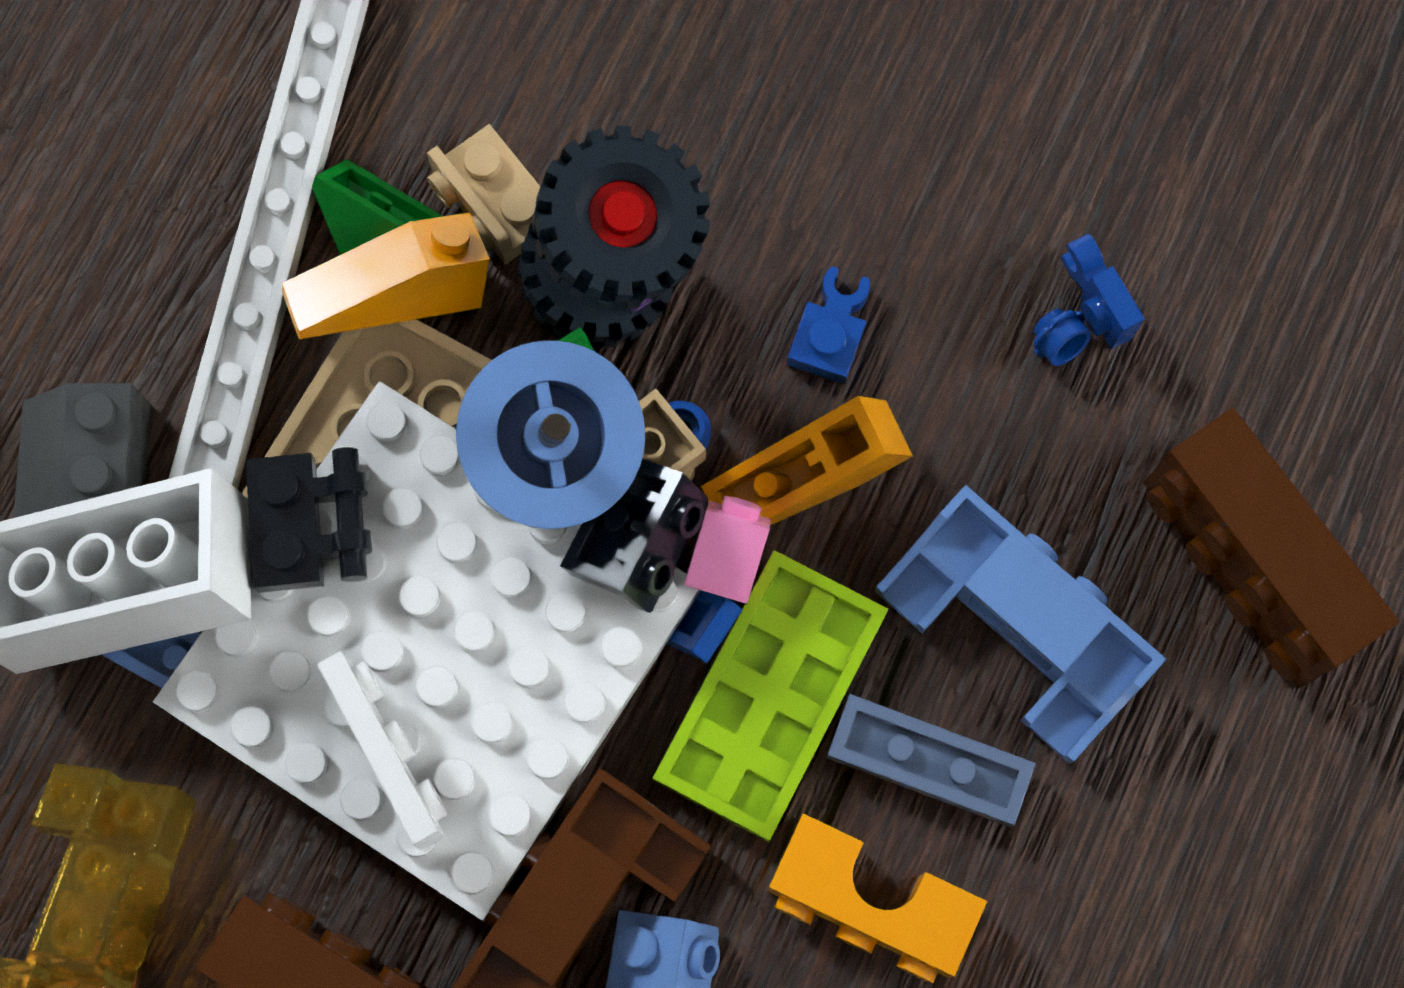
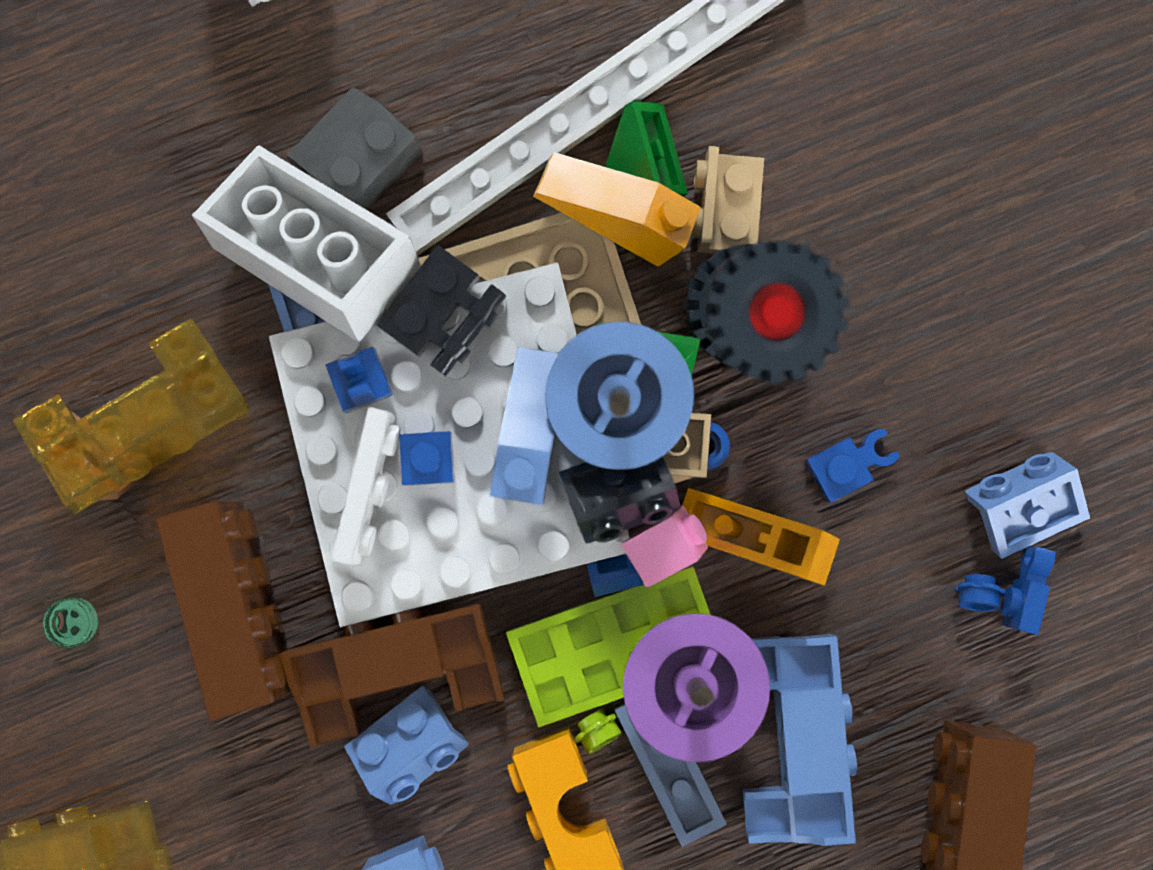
camera: 45 degrees right, 10 degrees up
(283, 657) = (359, 380): none -> blue tile
(419, 671) = (427, 458): none -> blue plate
(496, 557) = (526, 432): none -> slope
(831, 792) = (597, 731): none -> lime plate
(878, 646) = (696, 687): none -> medium lavender piece
(1026, 214) = (1029, 503): none -> medium blue bracket

